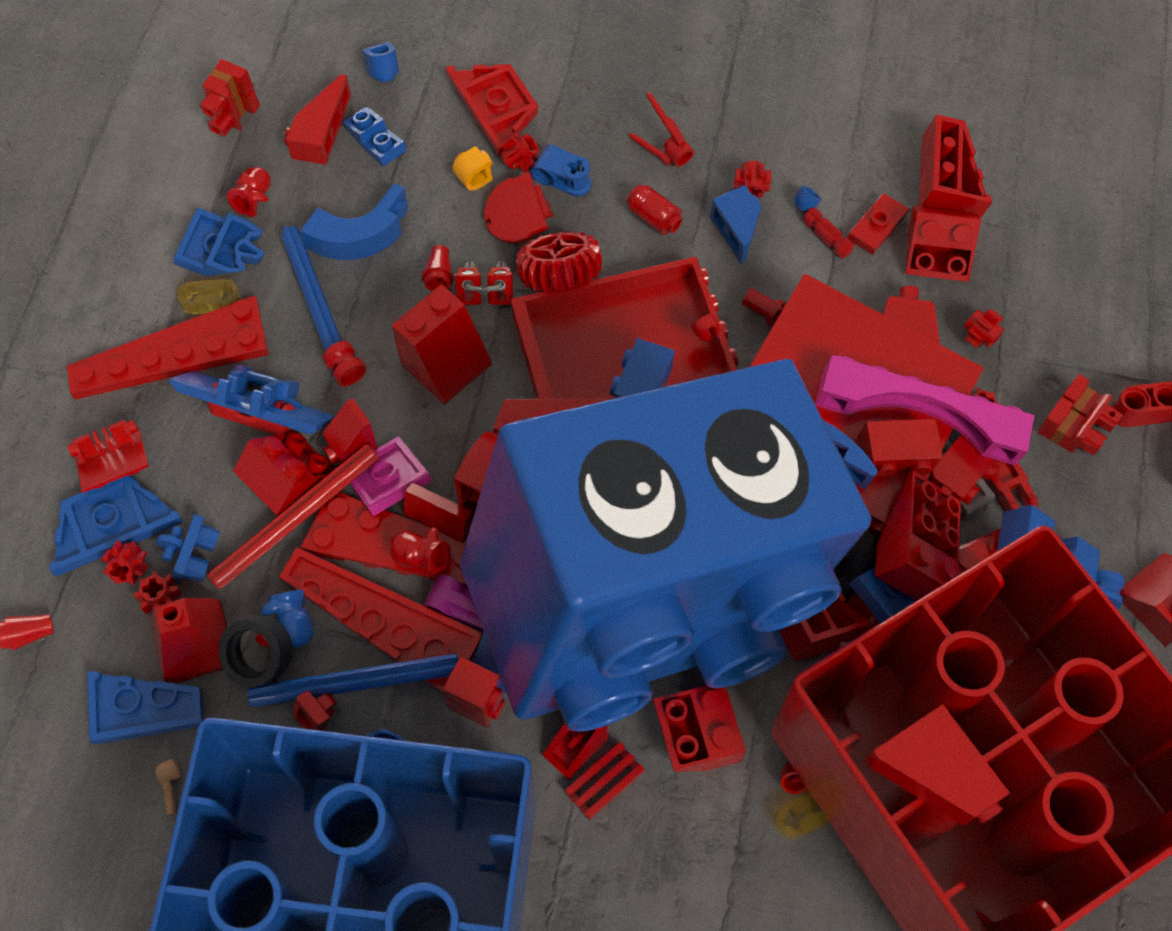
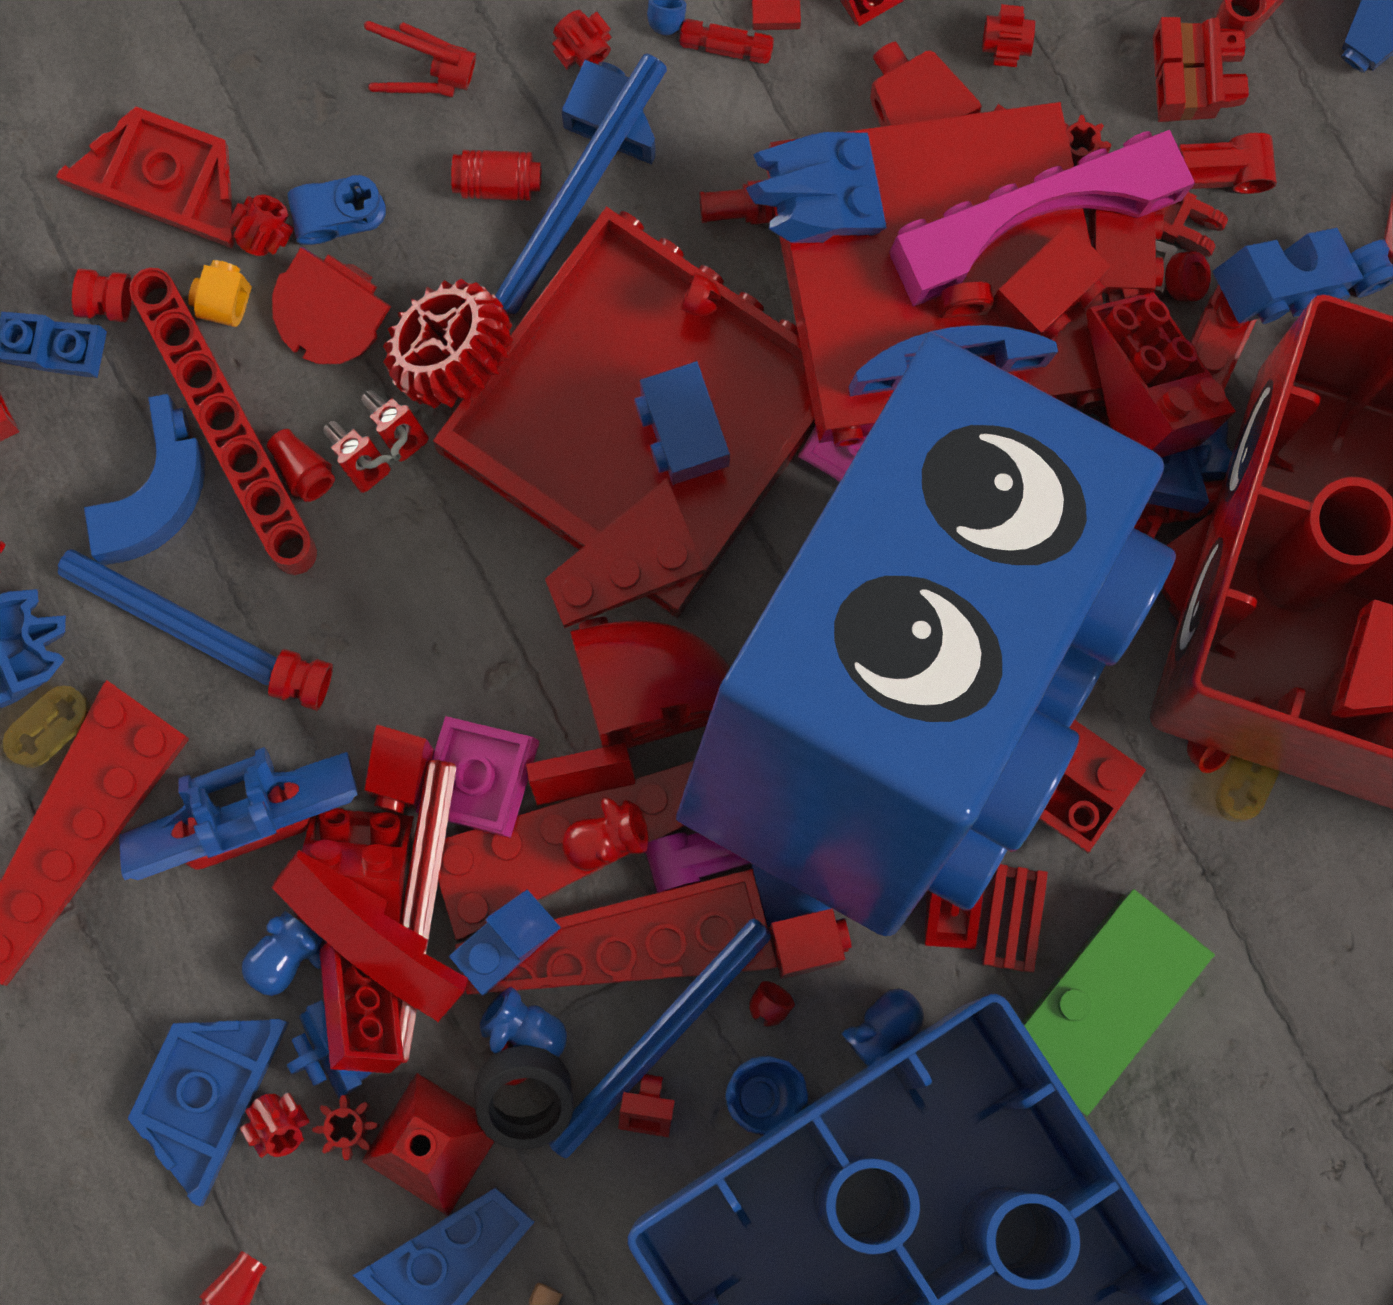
camera: 40 degrees left, 15 degrees up
(109, 458) = (133, 1021): red hinge -> none
(206, 483) = (277, 957): none -> blue animal
(220, 535) = (359, 1018): none -> red piece
(254, 509) = (356, 927): none -> red slope
(321, 564) = (504, 941): none -> blue slope
(415, 128) = (101, 295): none -> red wheel
(430, 714) = (771, 1003): none -> red hinge
(433, 182) = (209, 402): none -> red beam
(440, 344) = (406, 568): red slope -> none
(615, 868) = (1114, 996): none -> bright green brick
(694, 236) = (580, 182): none -> blue axle
(811, 308) = (821, 187): none -> blue plate
(846, 419) = (965, 300): none -> red tile
(988, 515) = (1187, 276): none -> red tile
(1068, 482) = (1241, 163): none -> red piece

